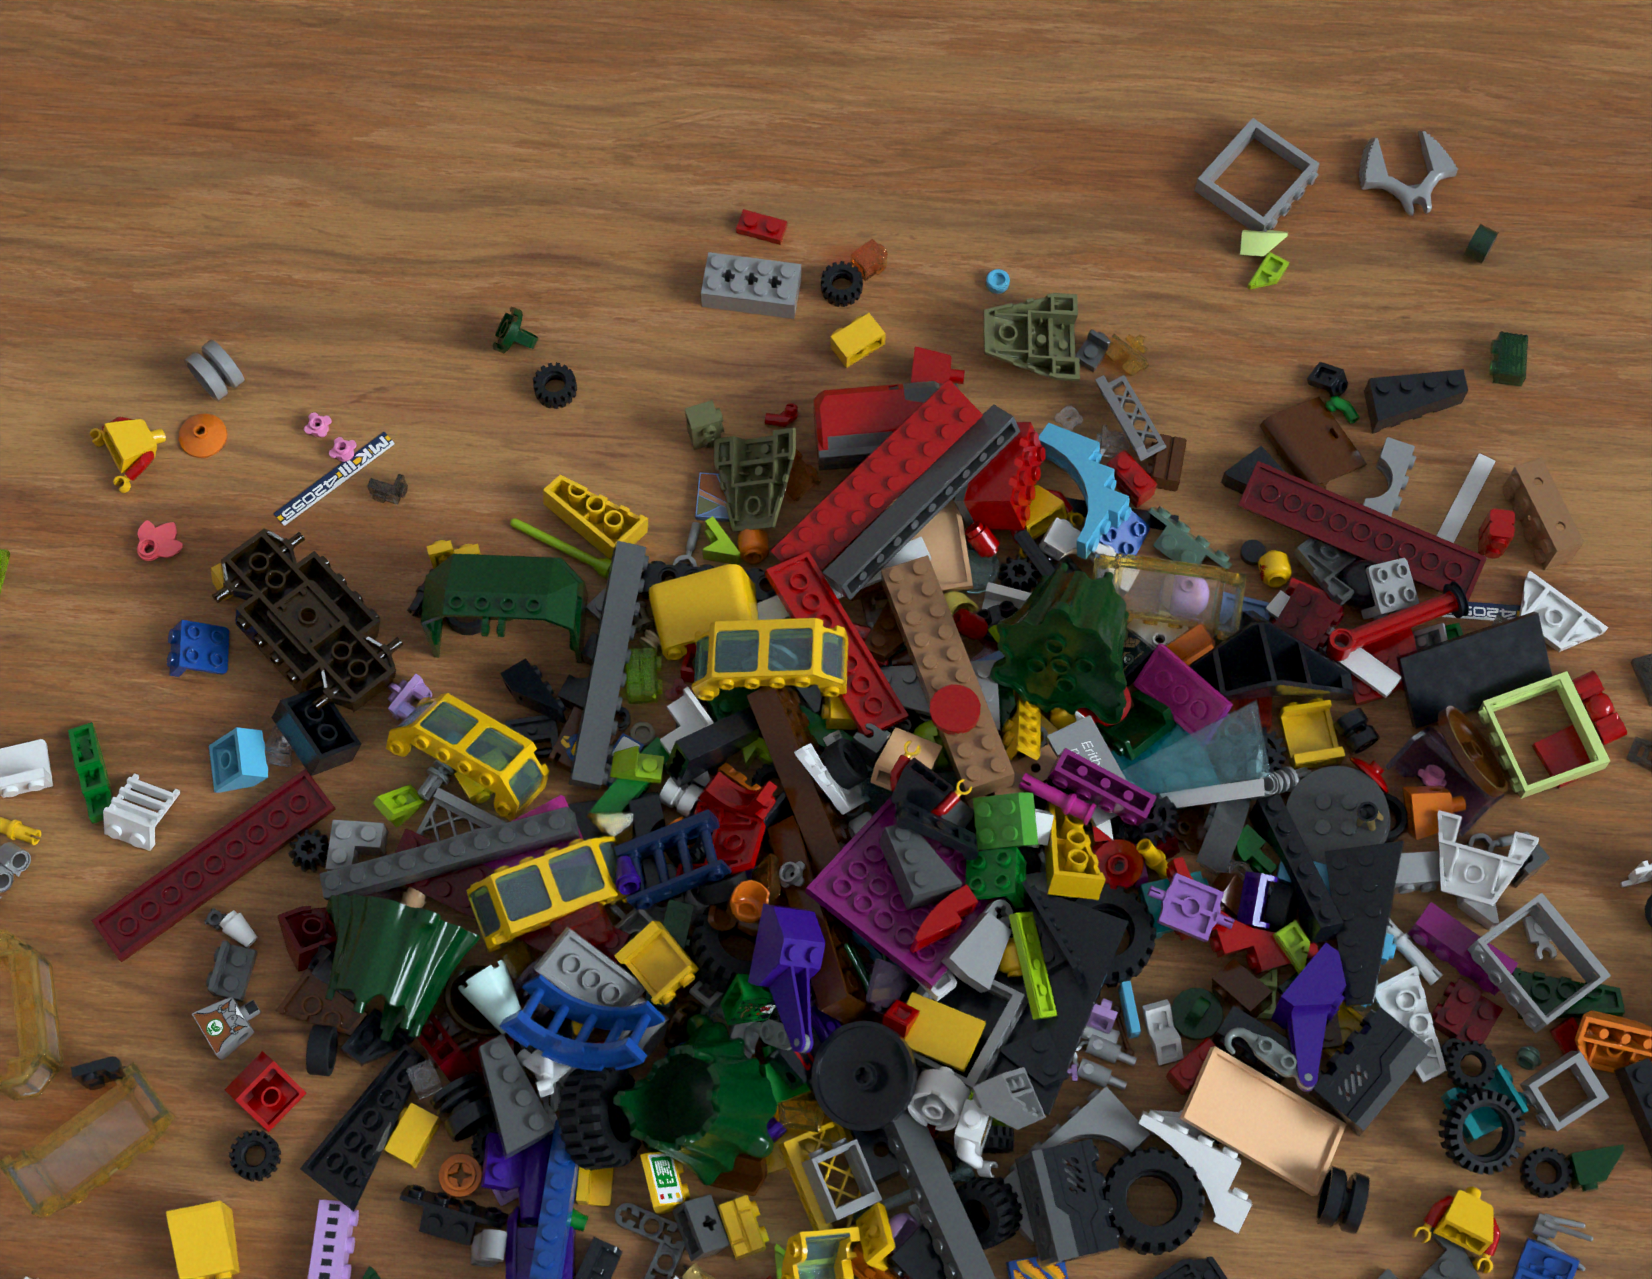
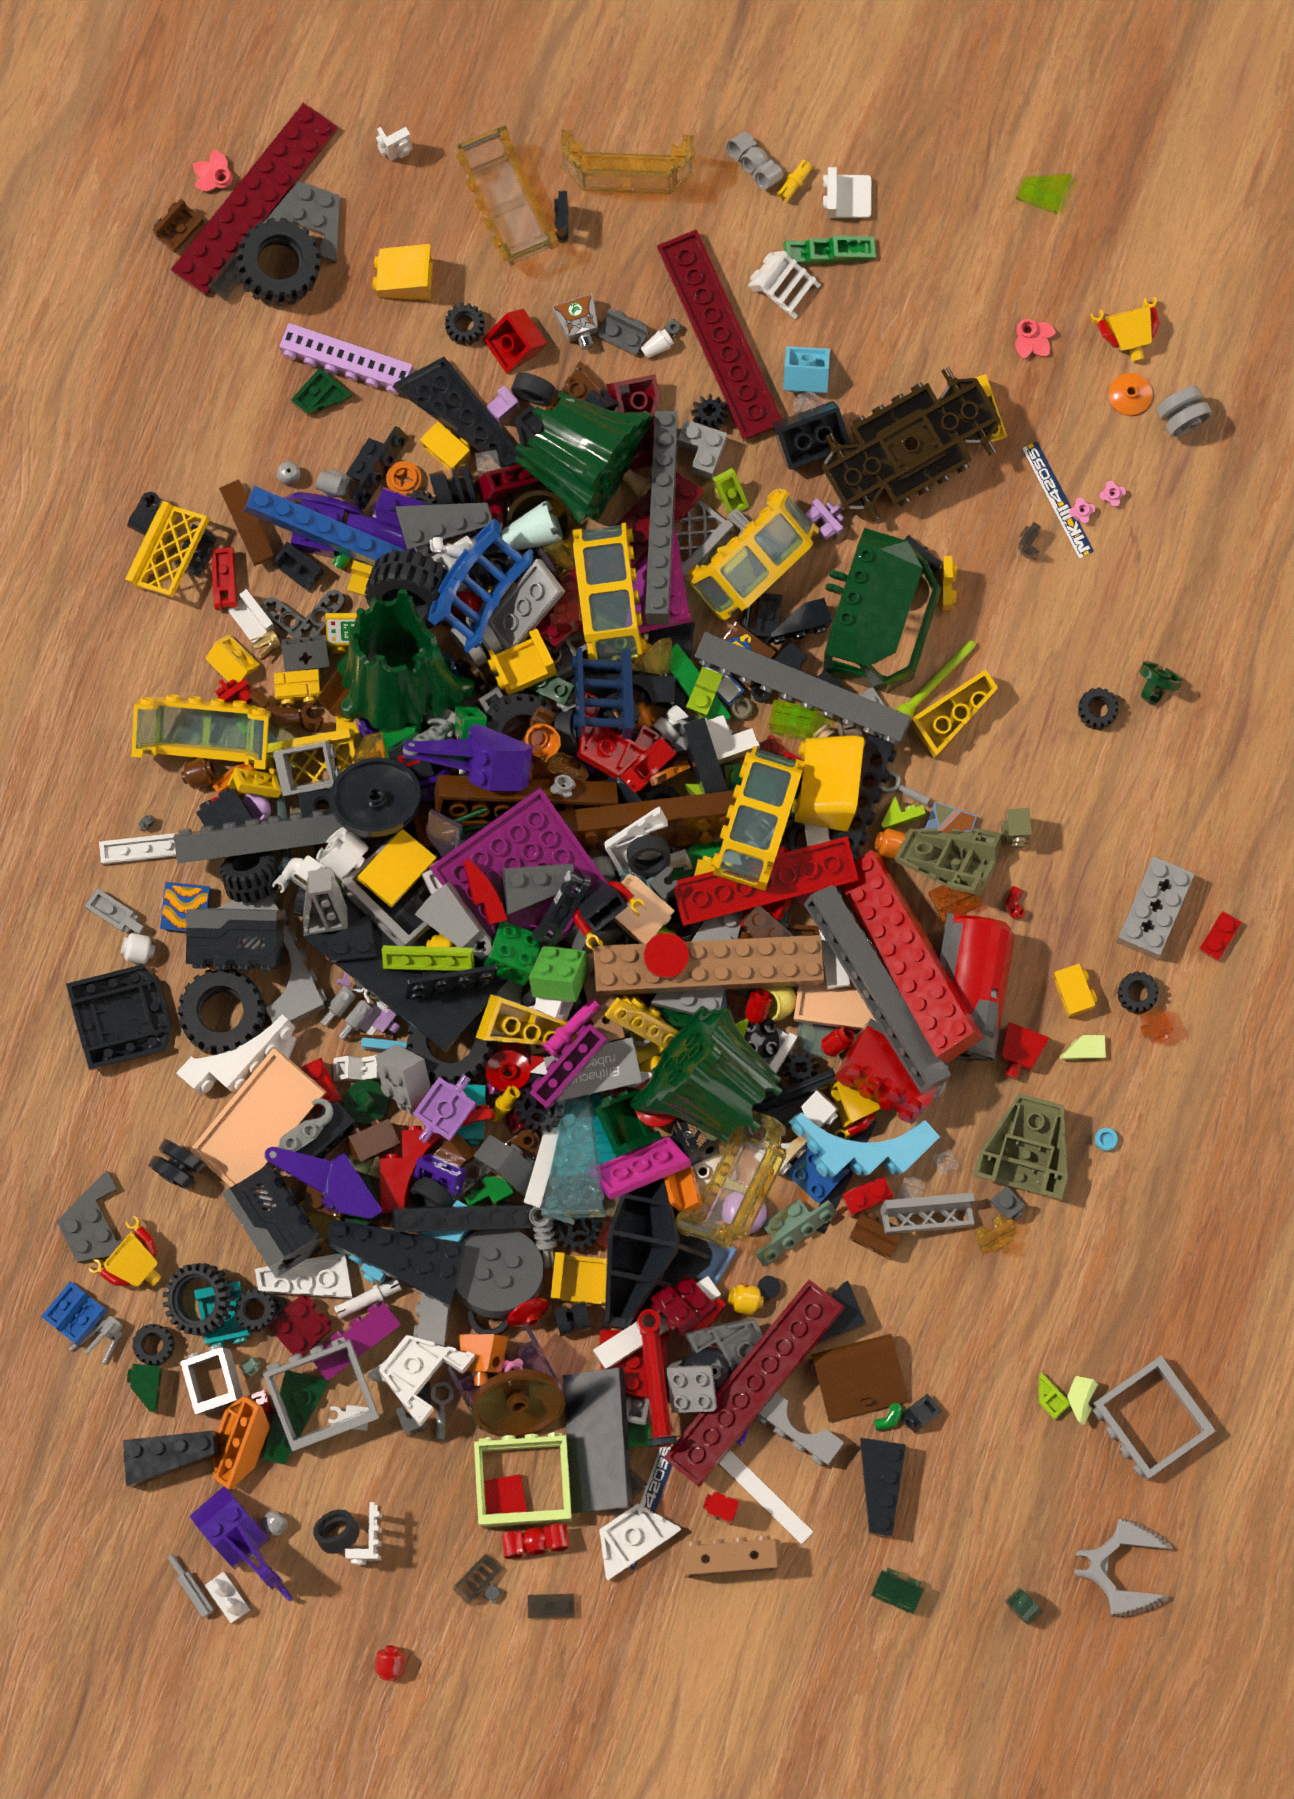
camera: 110 degrees right, 10 degrees up
(198, 648) = (919, 354): blue bracket -> none
(346, 1084) = (503, 405): none -> lavender panel
(627, 878) = (599, 652): dark purple cone -> none
(782, 1227) = (287, 717): none -> reddish brown piece
(900, 1017) = (416, 840): red slope -> none
(912, 318) = (1086, 1048): none -> yellowish green slope
(1163, 970) = (403, 1077): none -> light grey hinge
(1294, 944) = (394, 1191): lime tile -> none
(1367, 813) = (483, 1285): black piece -> none

